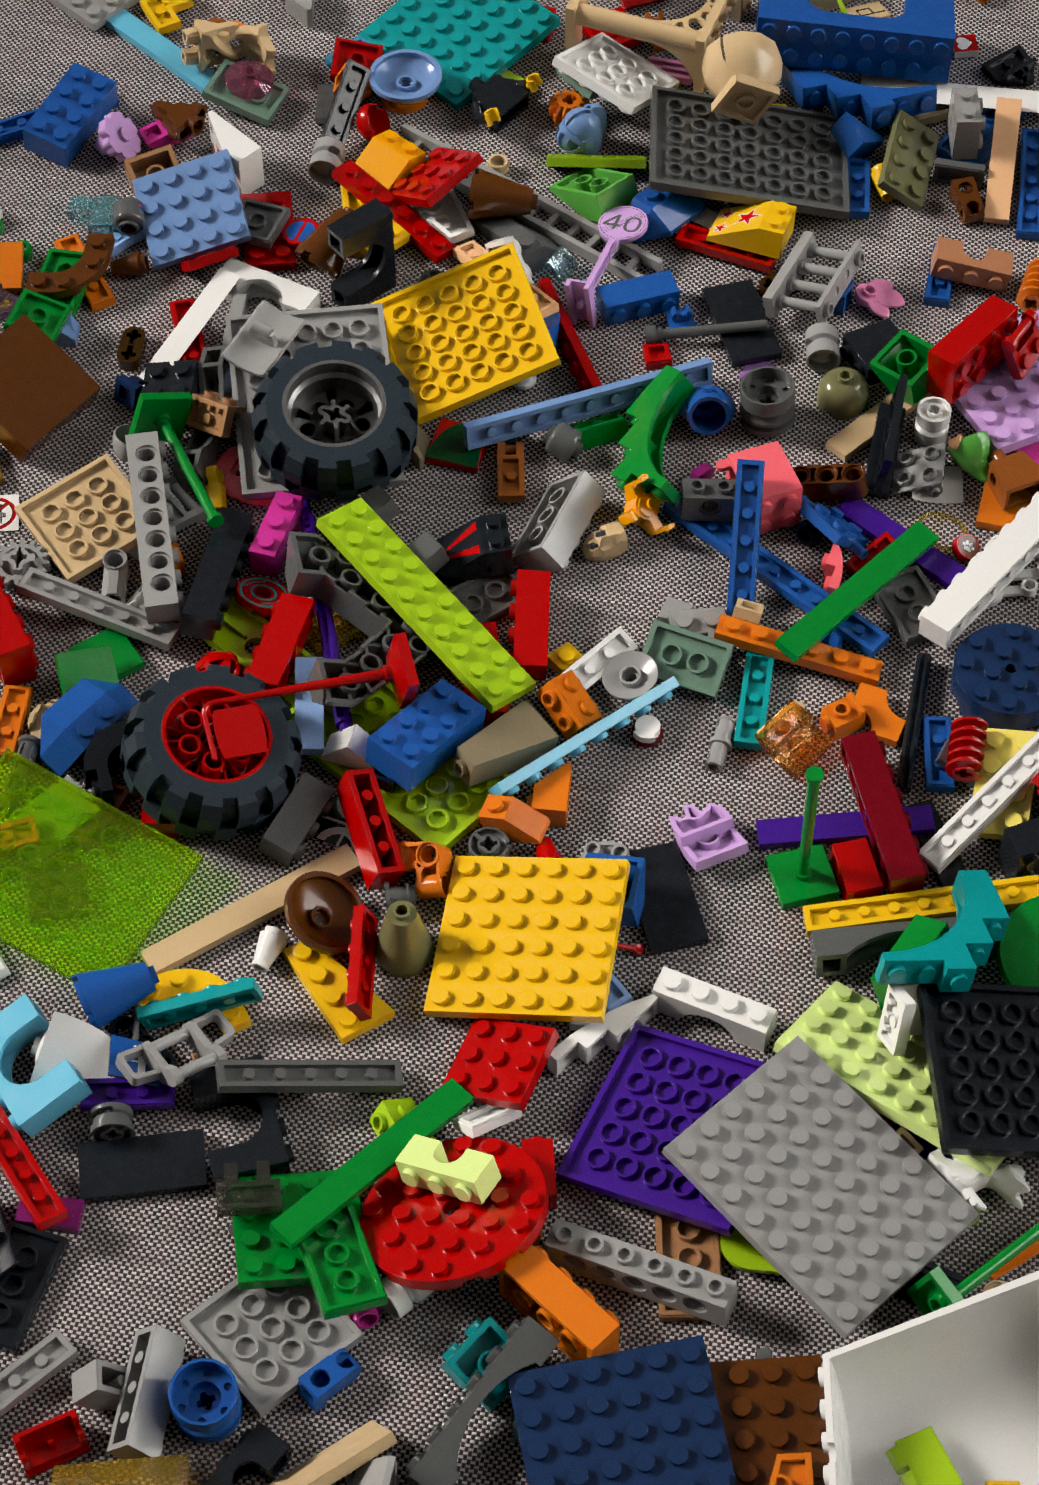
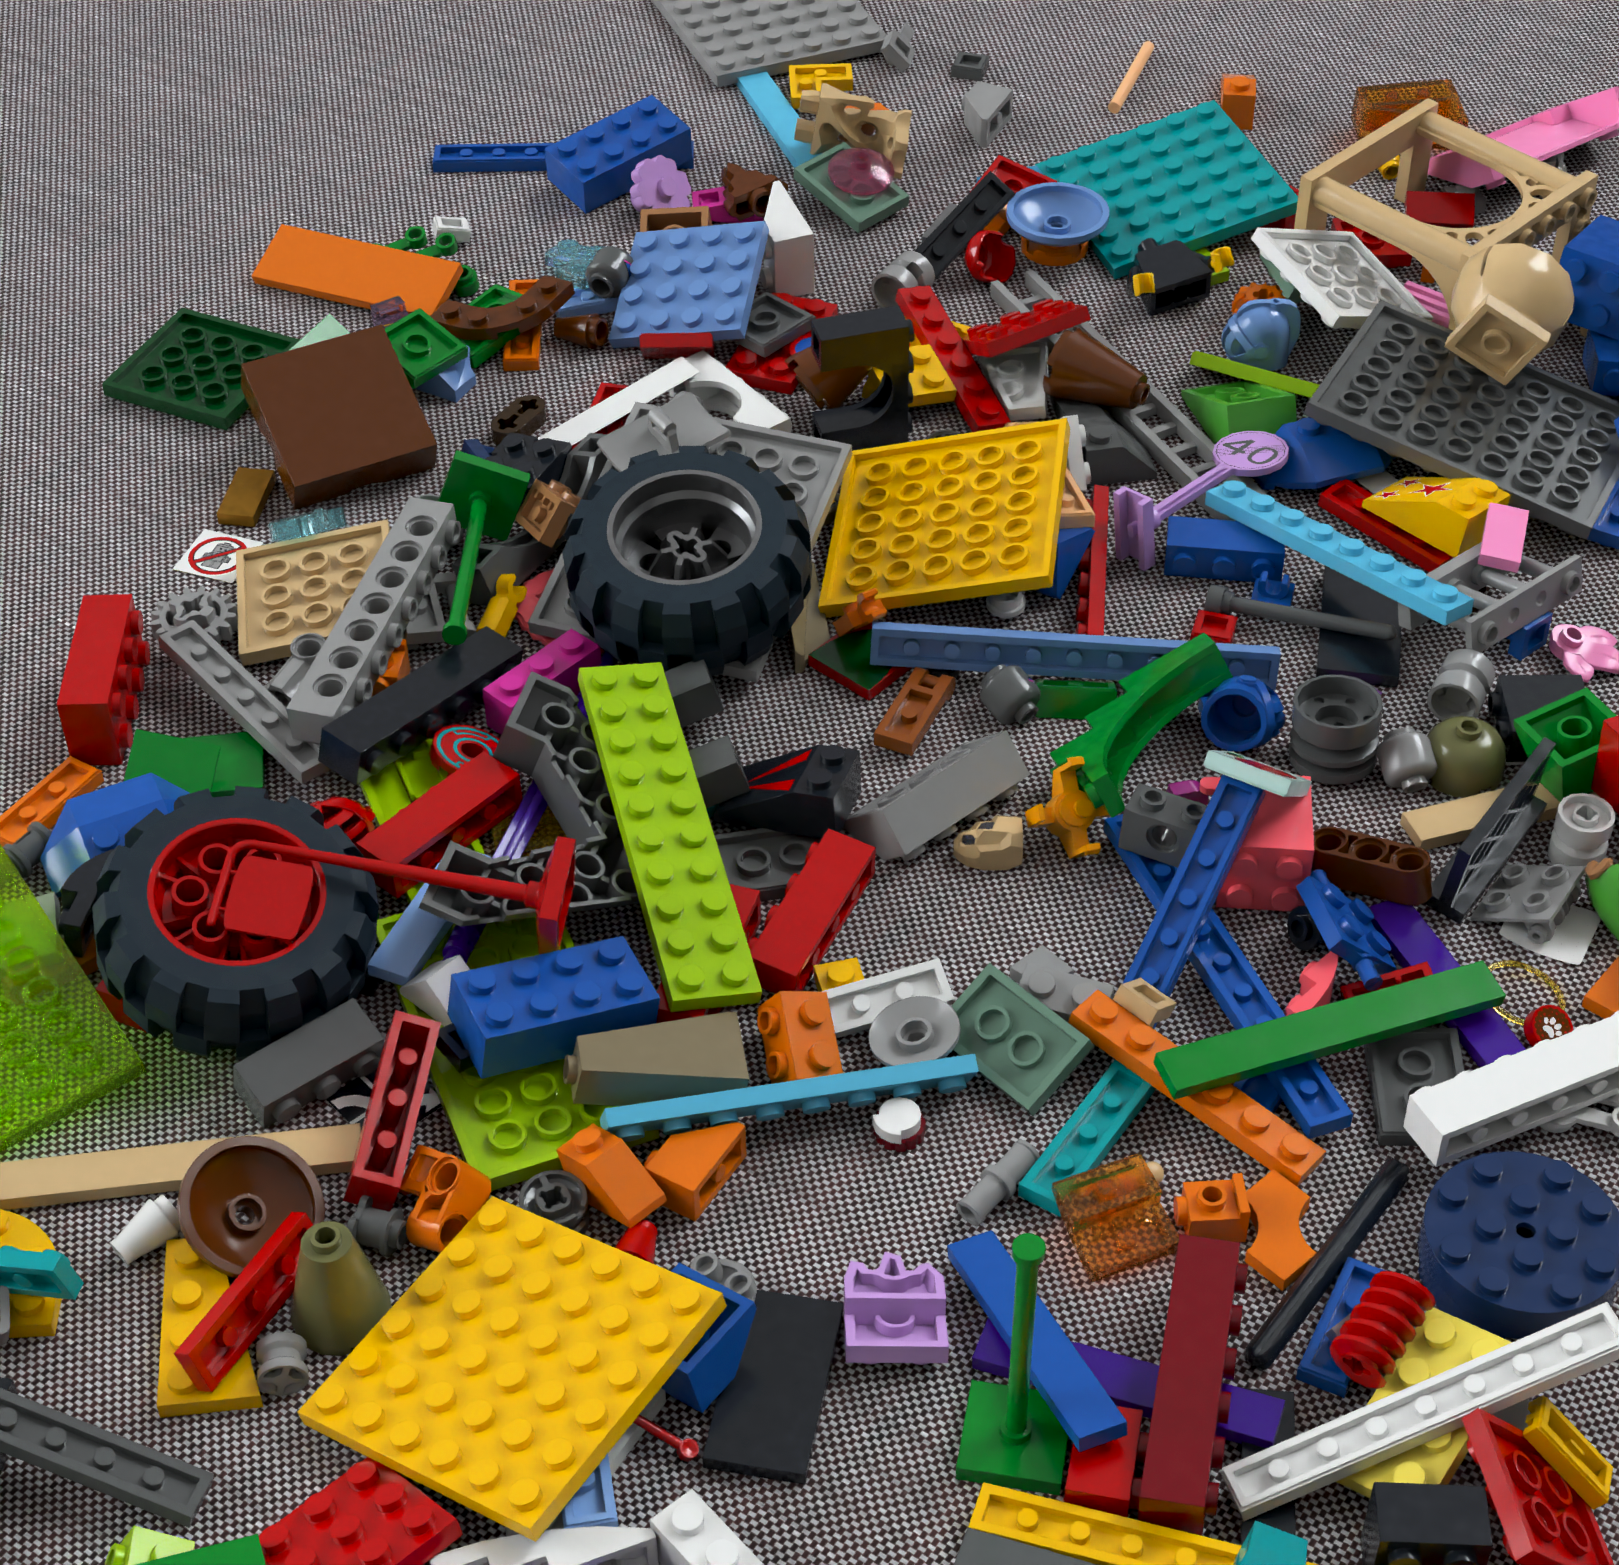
camera: 25 degrees right, 10 degrees down
(48, 473) = (307, 524): none -> clear light blue piece
(390, 158) = (981, 297): light orange slope -> none
(396, 989) = (282, 1363): none -> light grey wheel
(448, 419) = (860, 613): none -> orange plate
(499, 163) = (1129, 346): tan plate -> none
(562, 263) = (1144, 477): clear light blue plate -> none
(713, 280) = (1343, 554): none -> medium azure plate
(755, 452) = (1257, 773): none -> light aqua tile
(789, 820) = (1056, 1365): none -> blue tile
(808, 240) = (1503, 537): none -> bright pink tile
(814, 406) = (1406, 759): none -> light grey head

